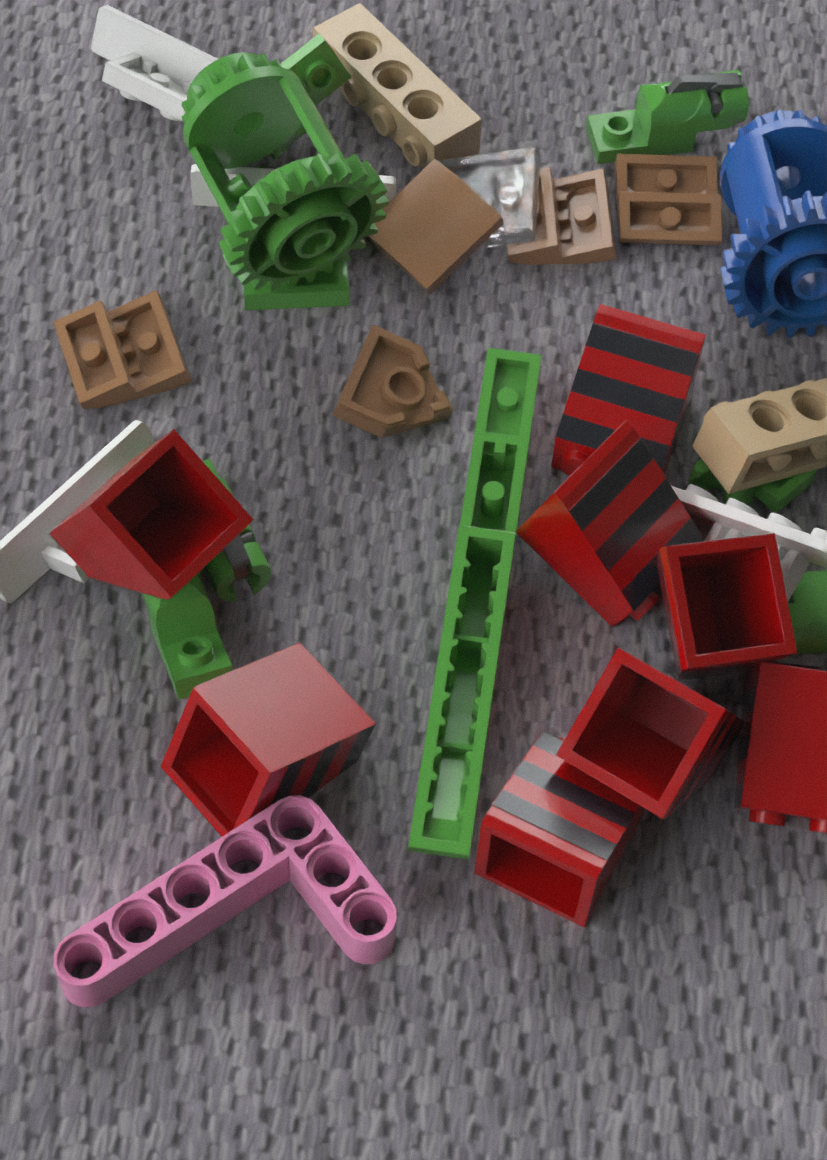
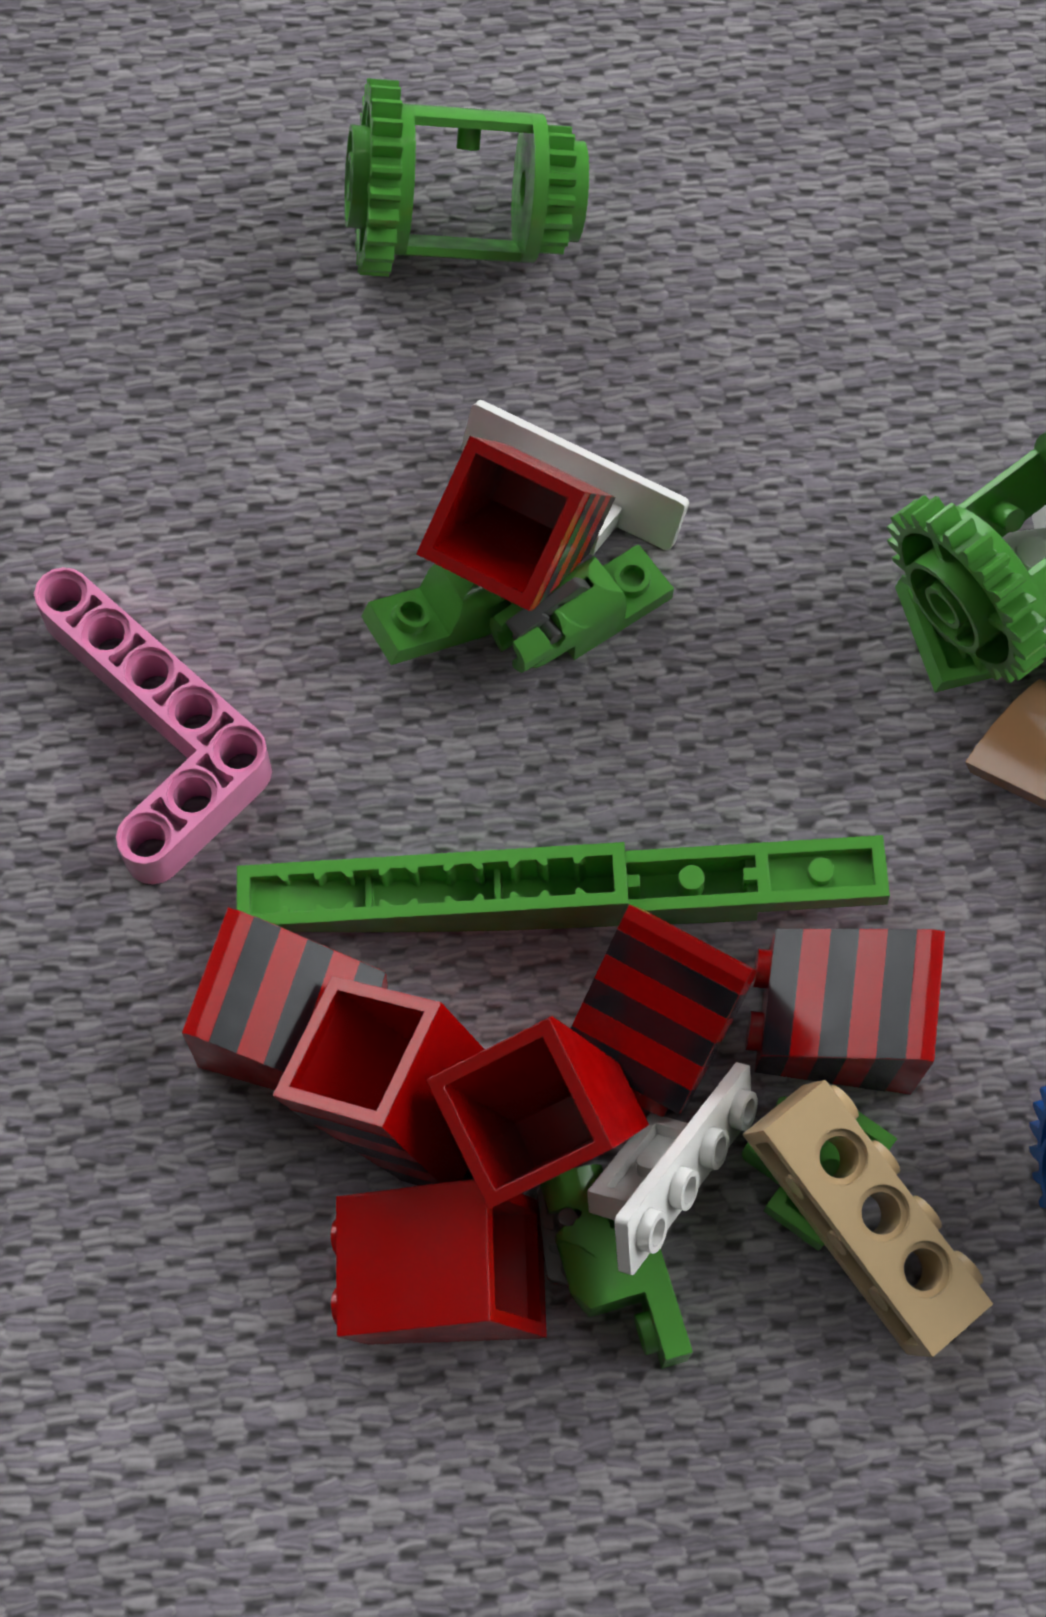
camera: 80 degrees right, 10 degrees up
(122, 351) = (796, 476): medium nougat slope -> none
(264, 737) = (342, 712): slope -> none
(391, 388) = (816, 749): medium nougat plate -> none

